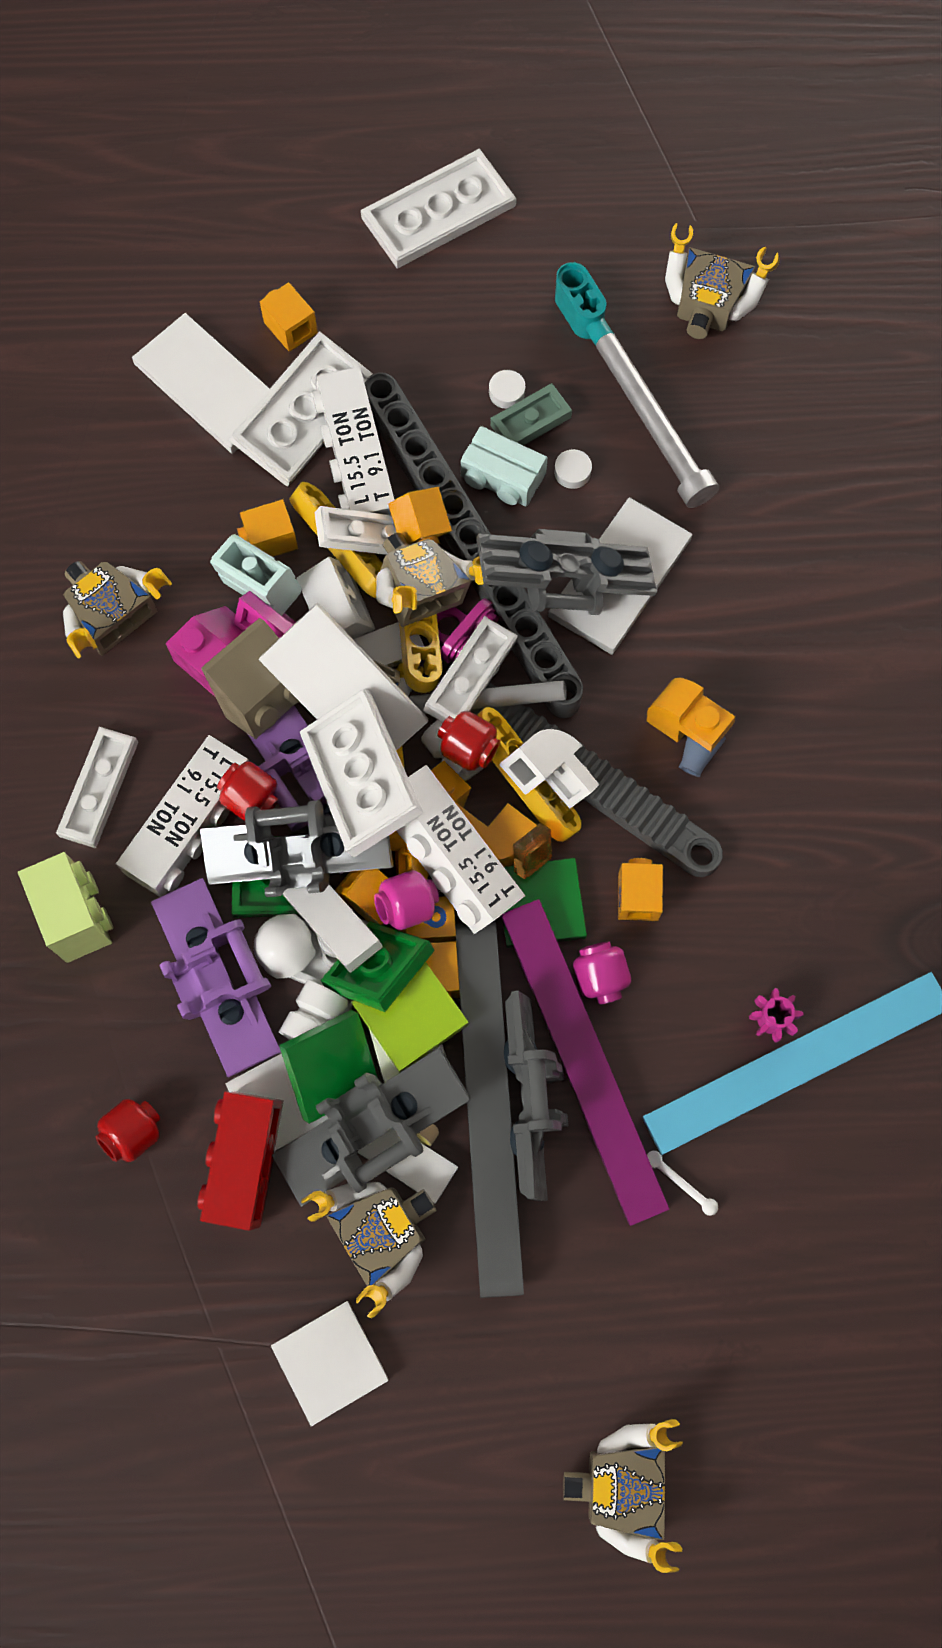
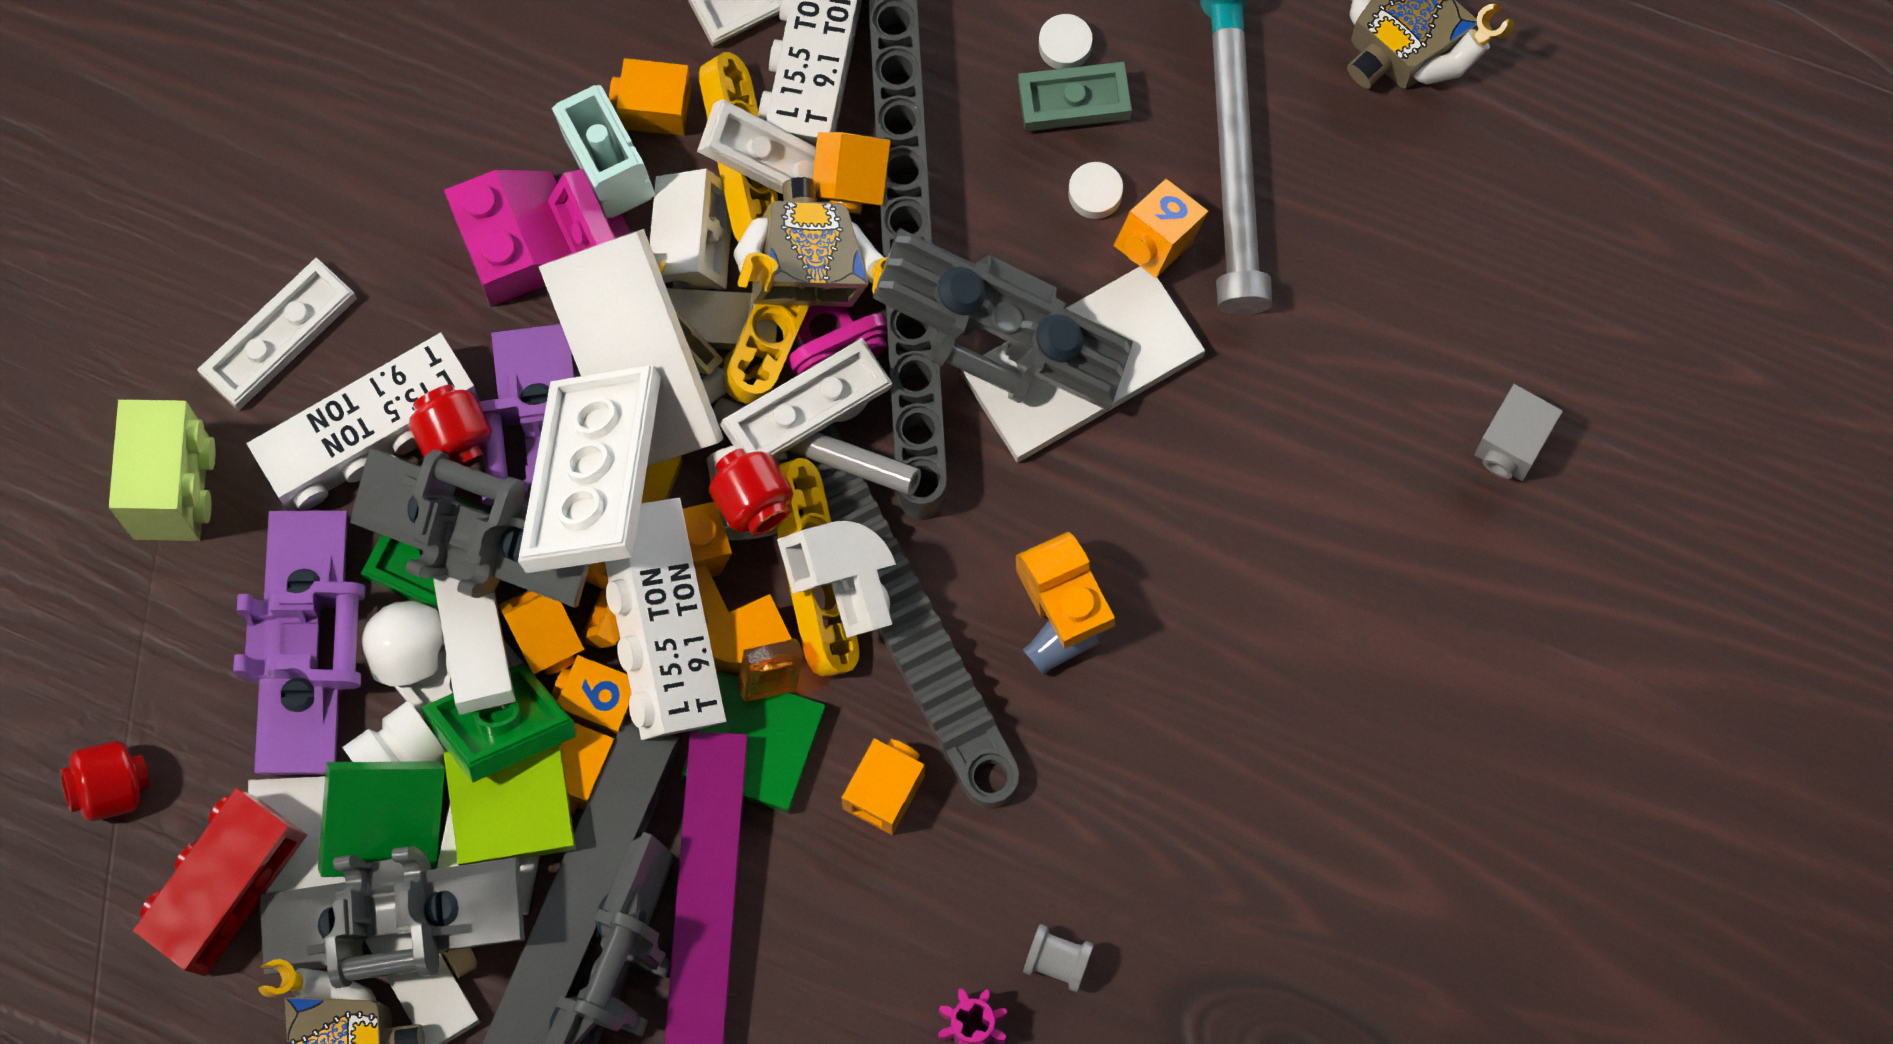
camera: 25 degrees right, 0 degrees up
(108, 604) = (400, 103): torso -> none
(244, 686) = (511, 290): dark tan slope -> none
(406, 900) = (573, 657): dark pink head -> none
(503, 467) = (1000, 147): light aqua brick -> none
(602, 972) = (781, 865): dark pink head -> none
(628, 471) = (1160, 228): none -> light orange brick
(806, 947) = (1058, 958): none -> light grey bush
(907, 499) = (1517, 434): none -> light grey brick

